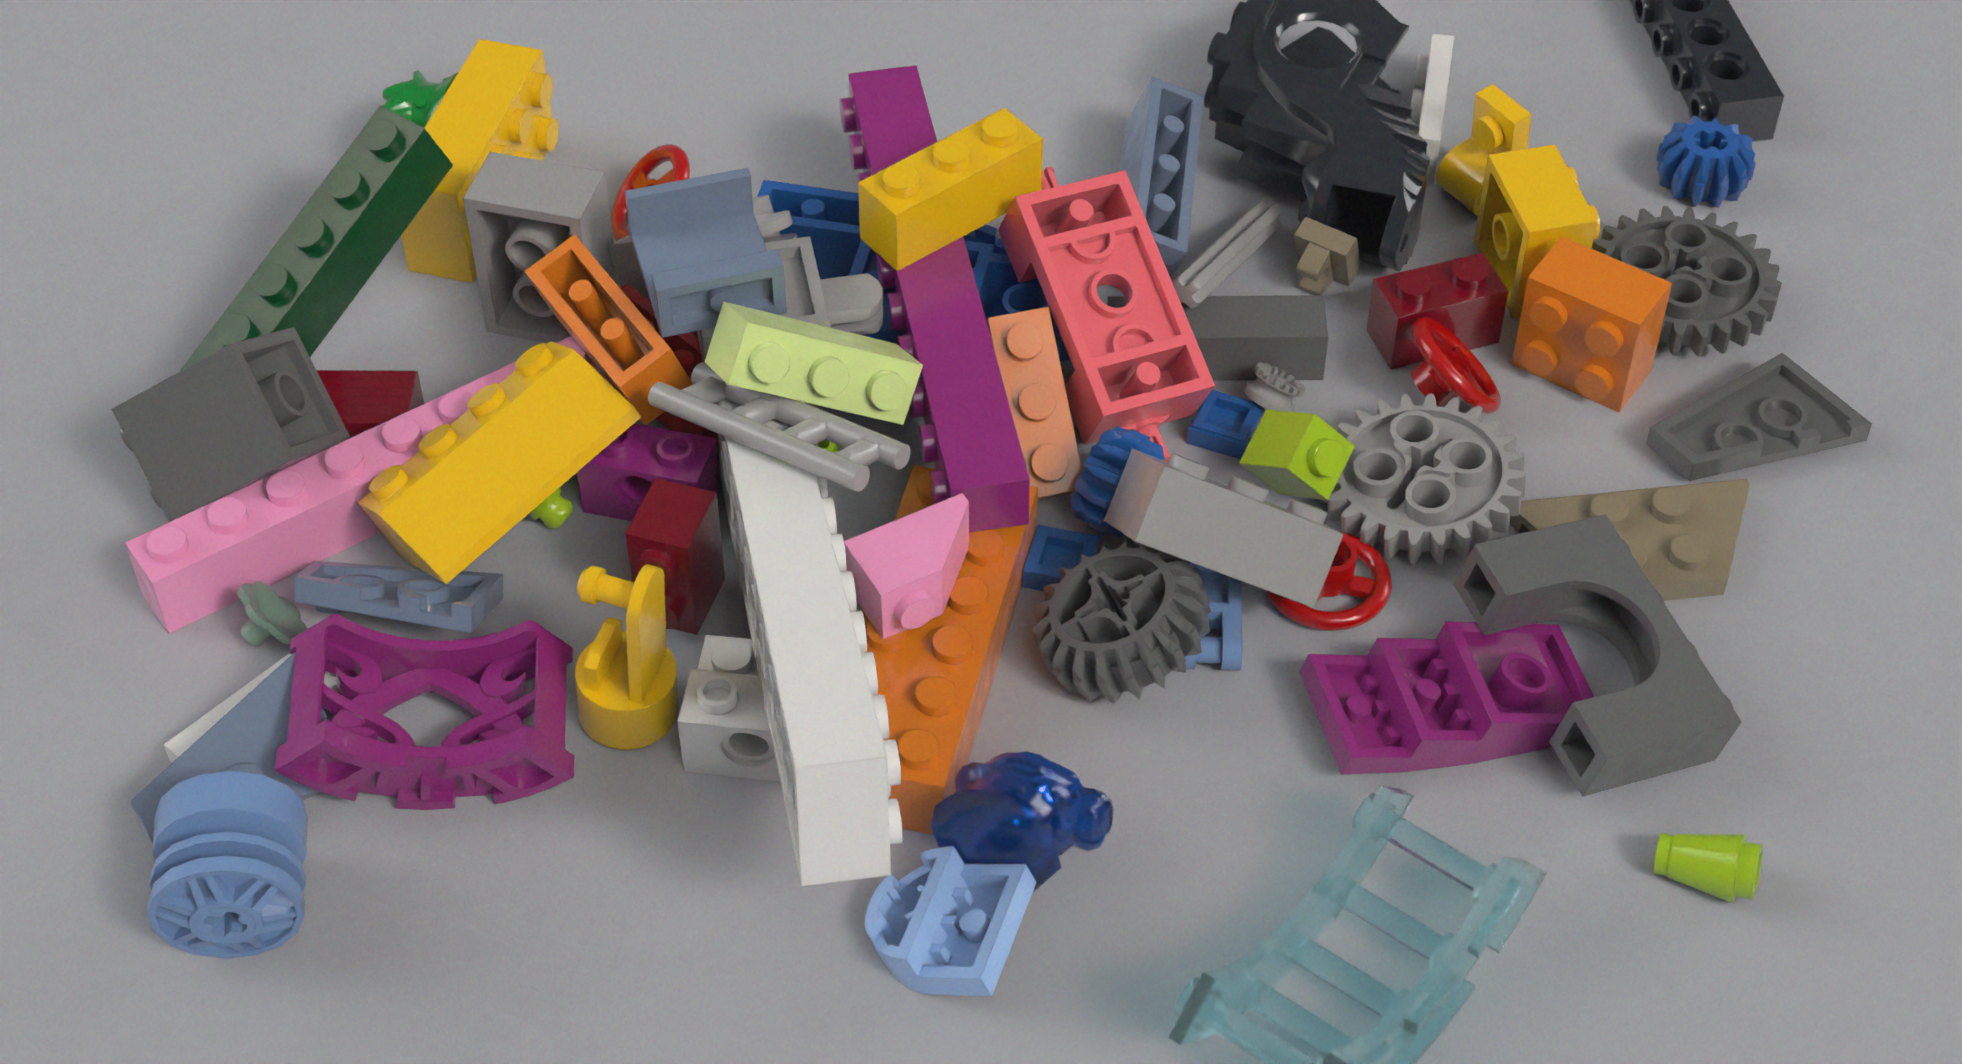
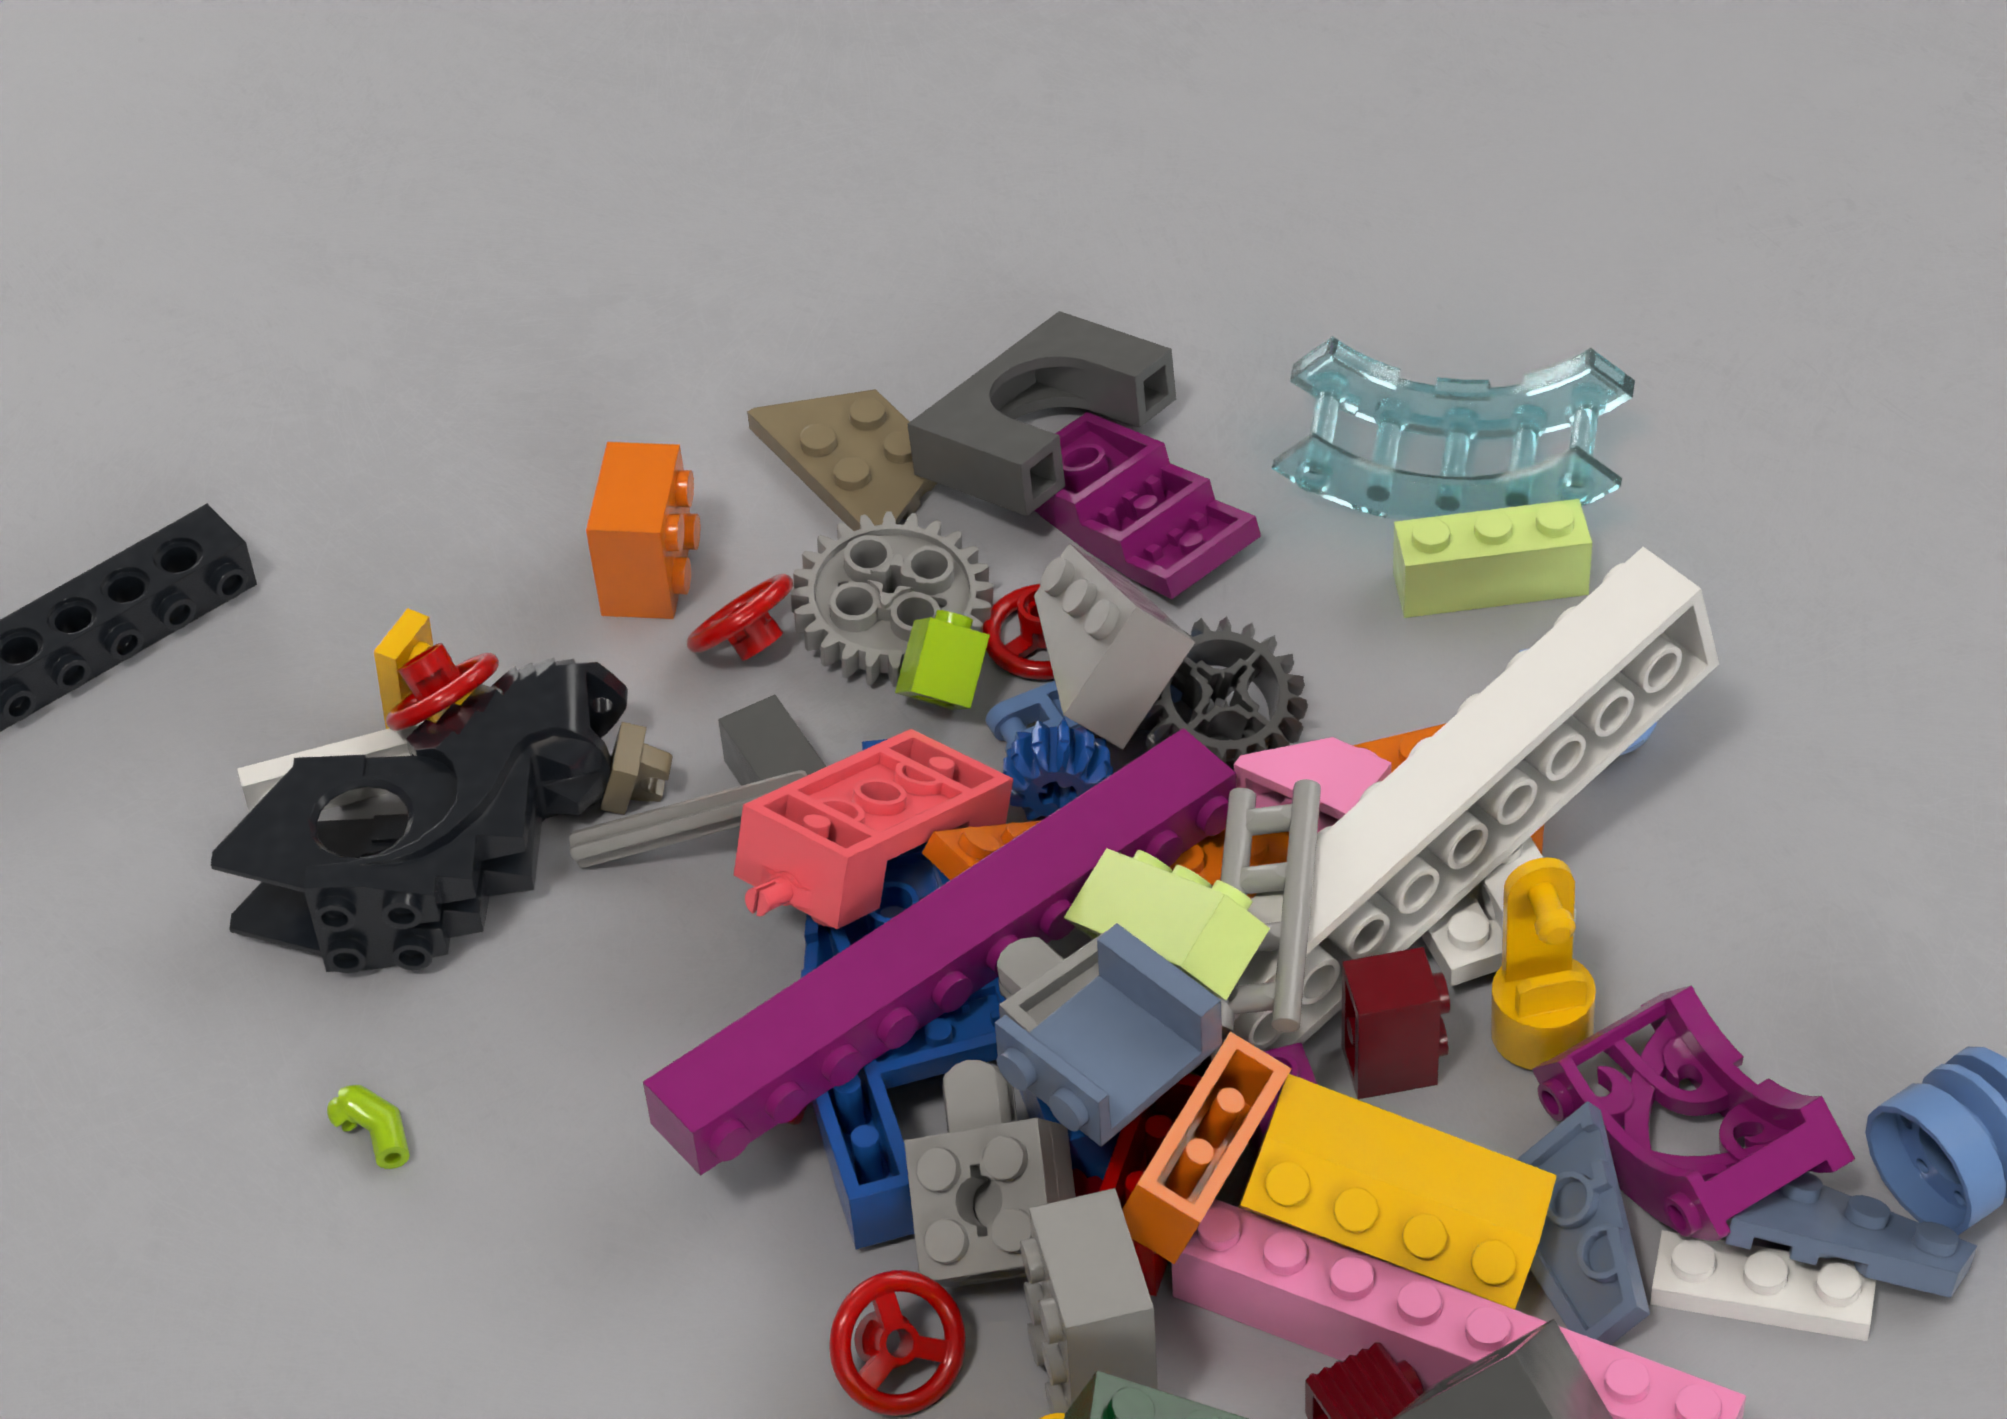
camera: 115 degrees left, 0 degrees up
(268, 615) = (1674, 1334): sand green plant -> none
(949, 188) = (866, 913): yellow brick -> none
(1021, 813) = (1464, 657): clear blue piece -> none
(1079, 46) = (383, 1120): none -> lime arm
(1162, 163) = (614, 920): sand blue brick -> none
(1176, 923) = (1492, 558): none -> yellowish green brick
(1272, 389) = (842, 735): light grey bush -> none
(1441, 121) = (437, 684): none -> red piece
(1457, 293) = (665, 658): dark red brick -> none
(1525, 210) = (530, 599): yellow brick -> none
(1705, 161) = (314, 553): blue gear -> none
(1711, 863) = (1188, 312): lime cone -> none
(1717, 278) = (503, 520): dark grey gear -> none
(1757, 421) = (657, 409): dark grey wing -> none

